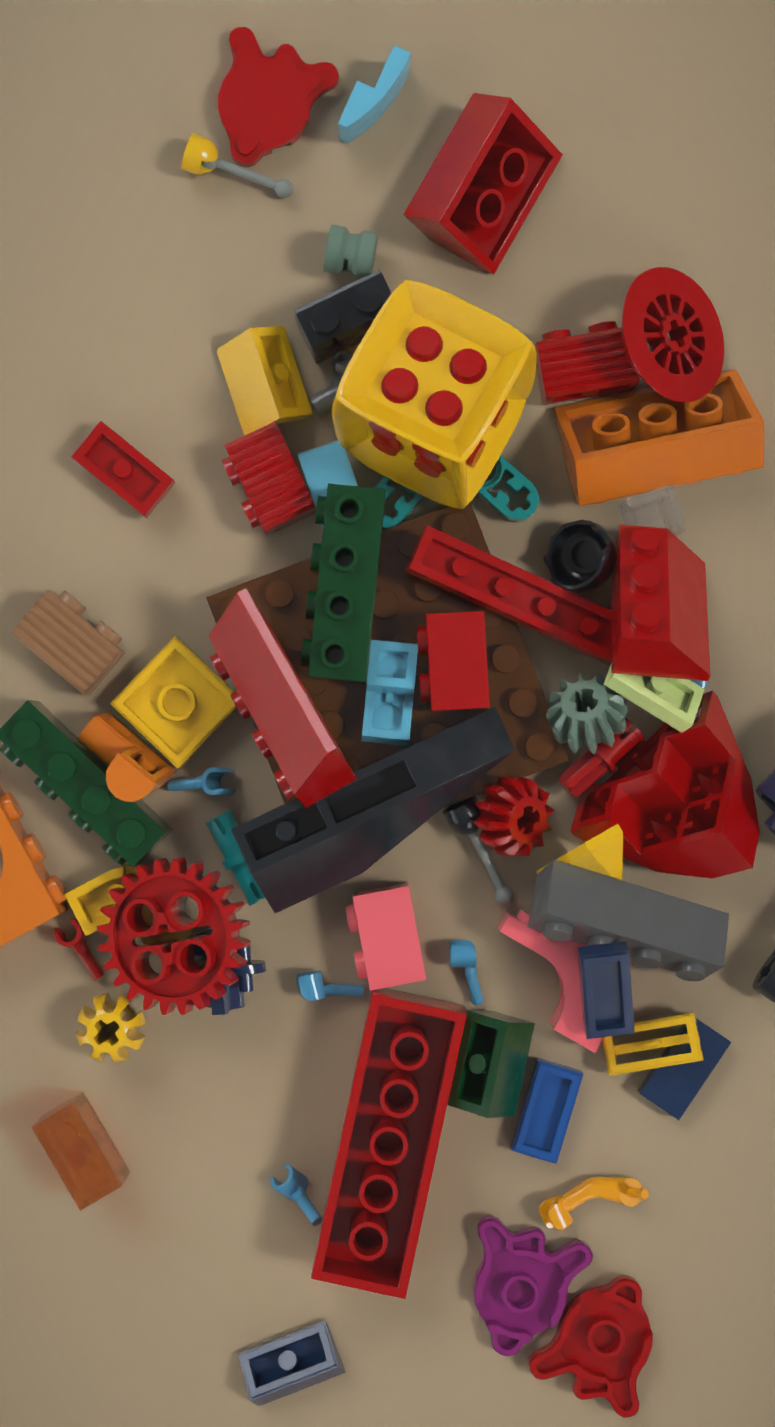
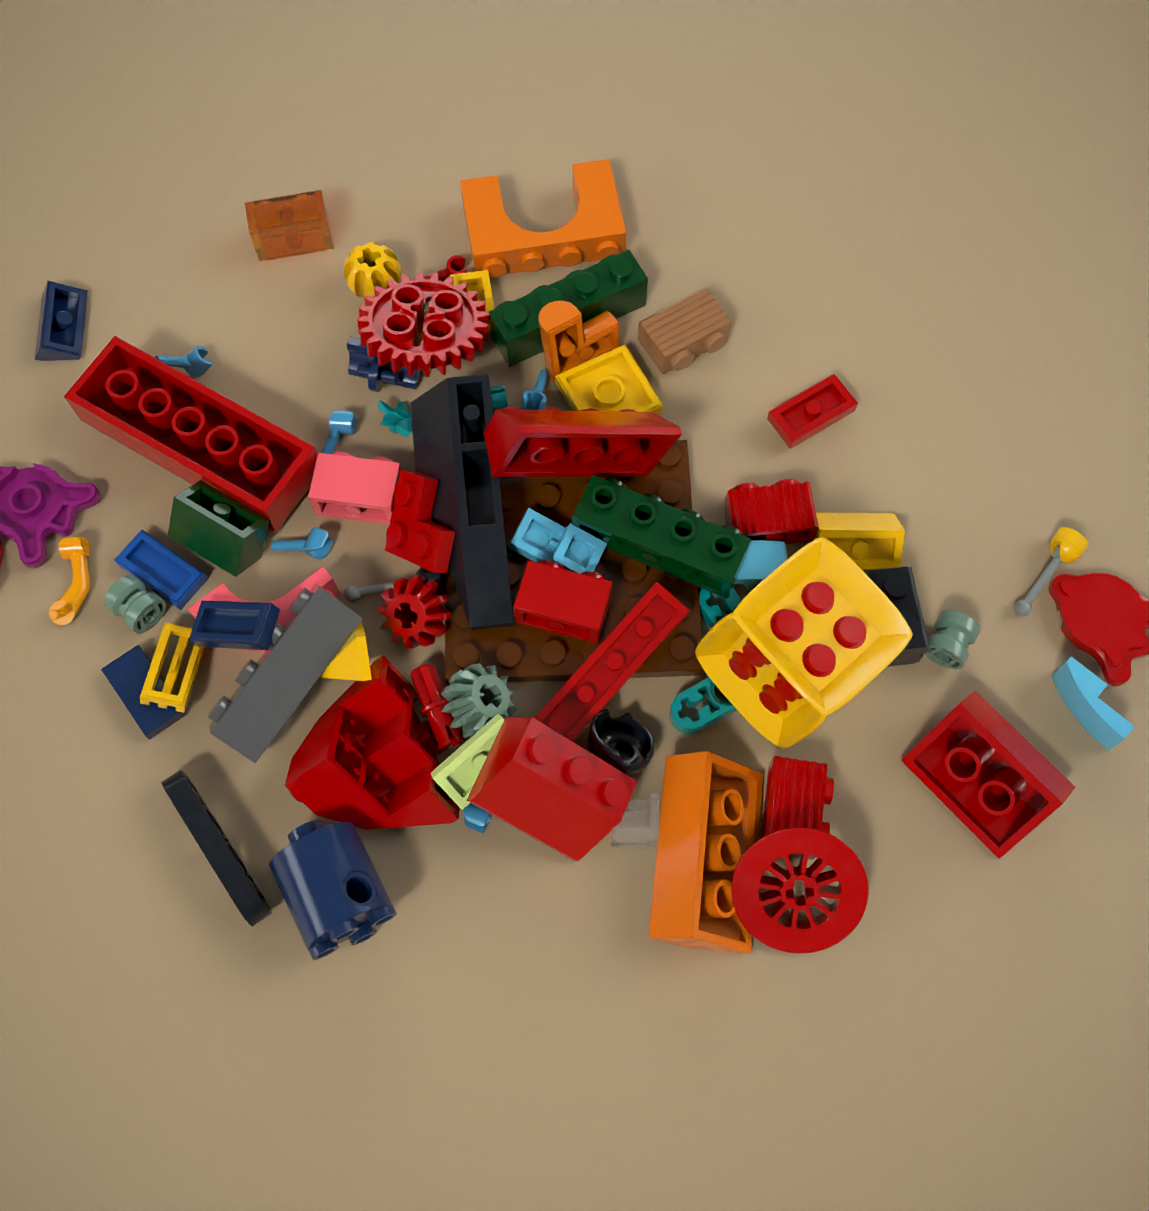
camera: 110 degrees right, 20 degrees down
(286, 926) = (397, 418): none -> teal plant
(424, 855) = (410, 529): none -> red plate
(599, 1117) = (132, 601): none -> sand green wheel

